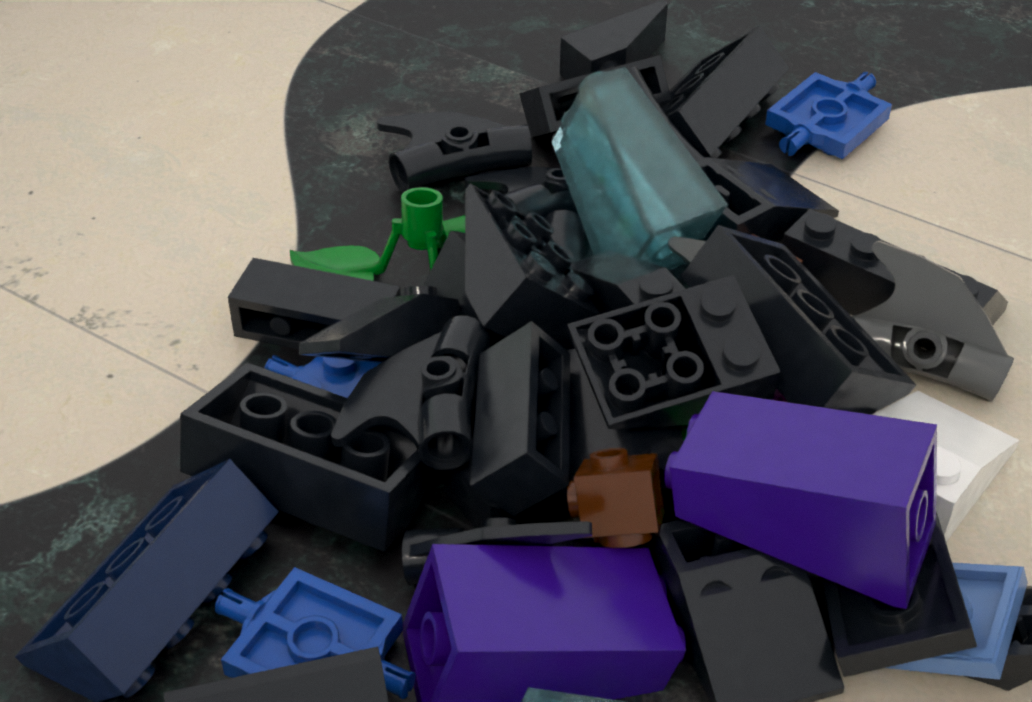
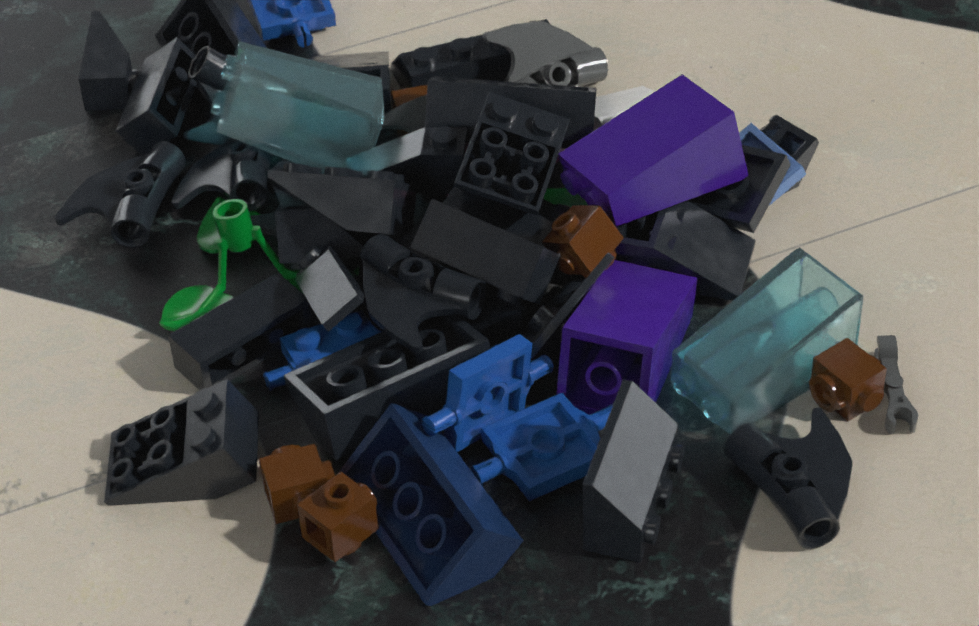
camera: 55 degrees left, 0 degrees up
(78, 511) = (338, 516): none -> reddish brown brick
(123, 454) = (290, 477): none -> reddish brown brick
(128, 356) = (185, 450): none -> black slope
(321, 534) = (487, 391): none -> blue plate

